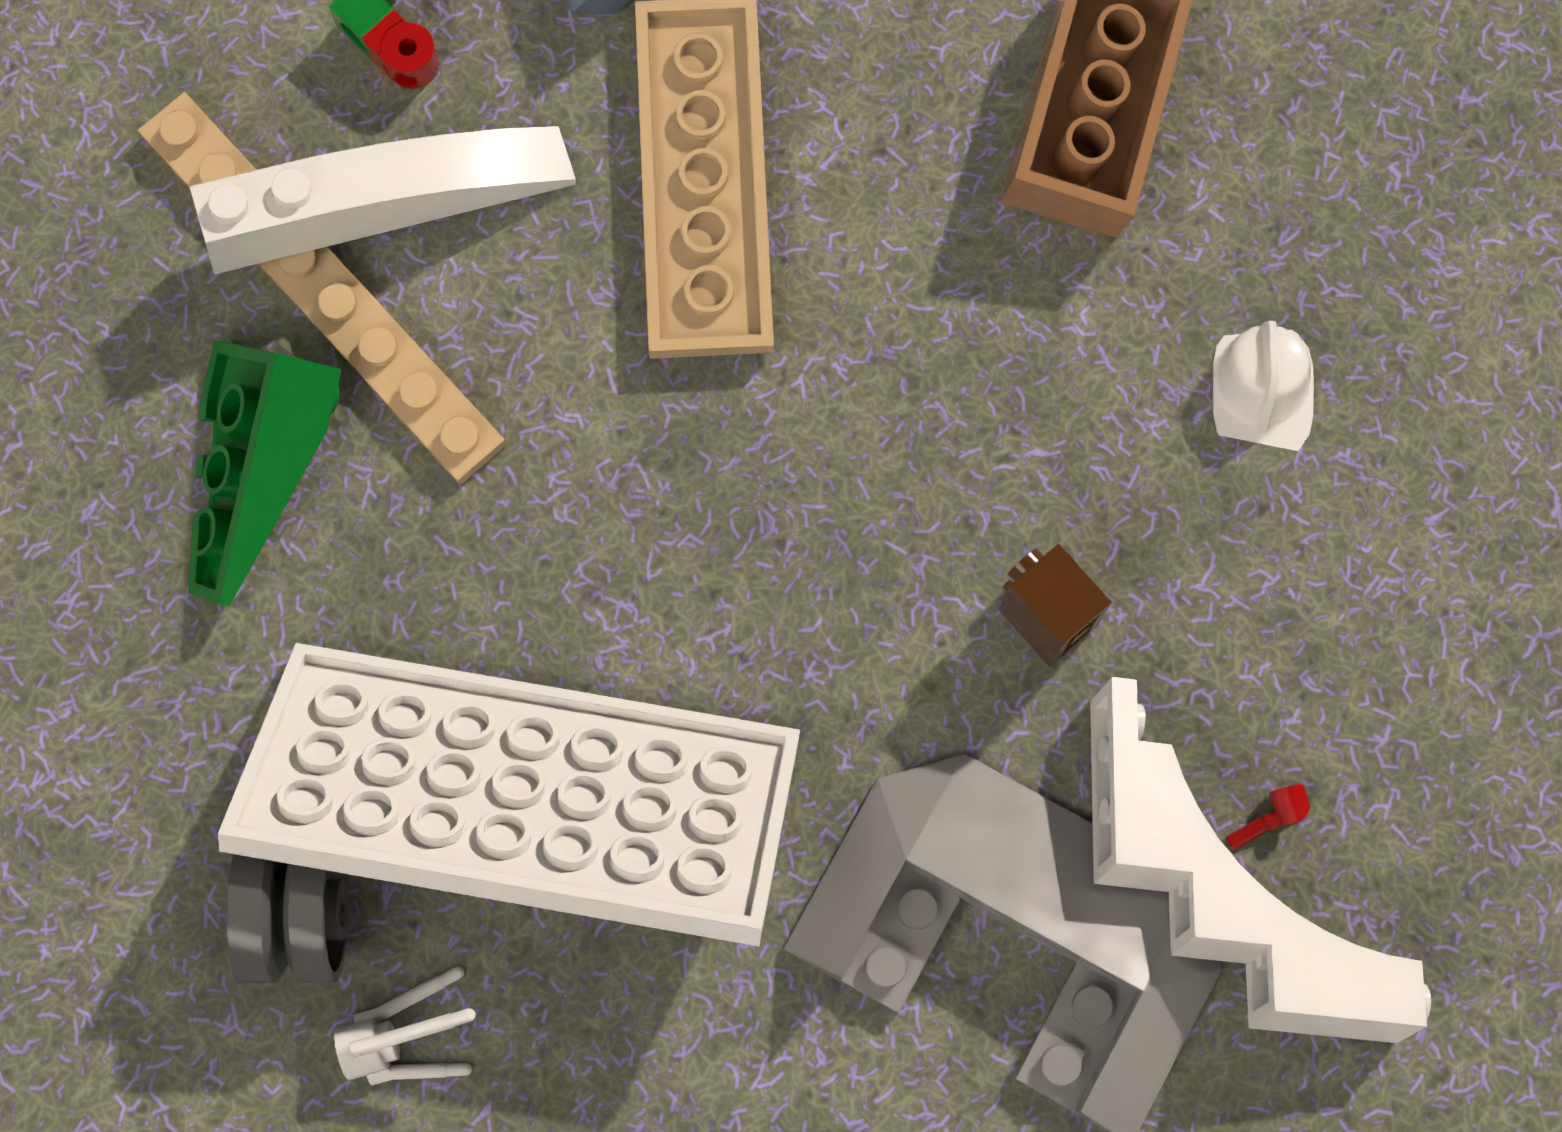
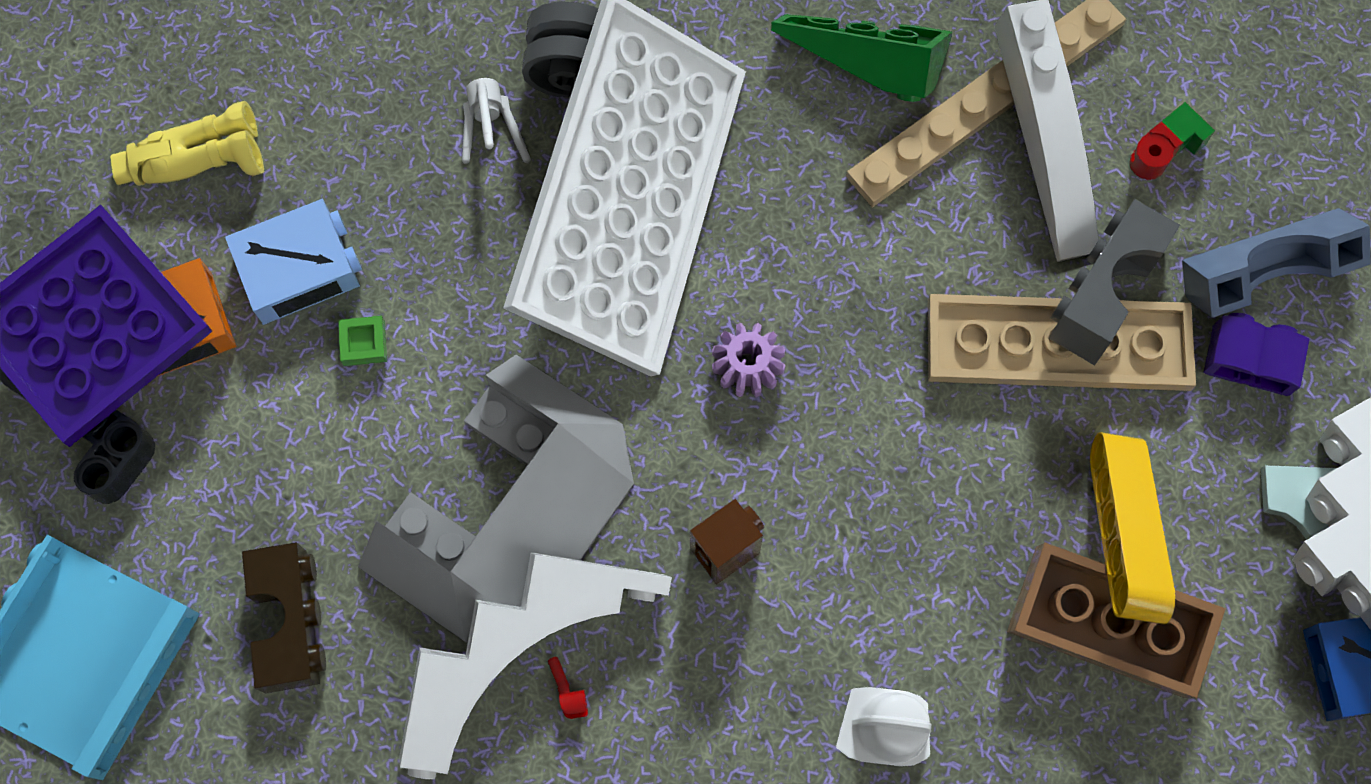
camera: 95 degrees right, 5 degrees down
(679, 125) = (1095, 313): none -> dark grey arch
(756, 619) = (730, 356): none -> lavender gear
(981, 69) = (1131, 529): none -> yellow beam

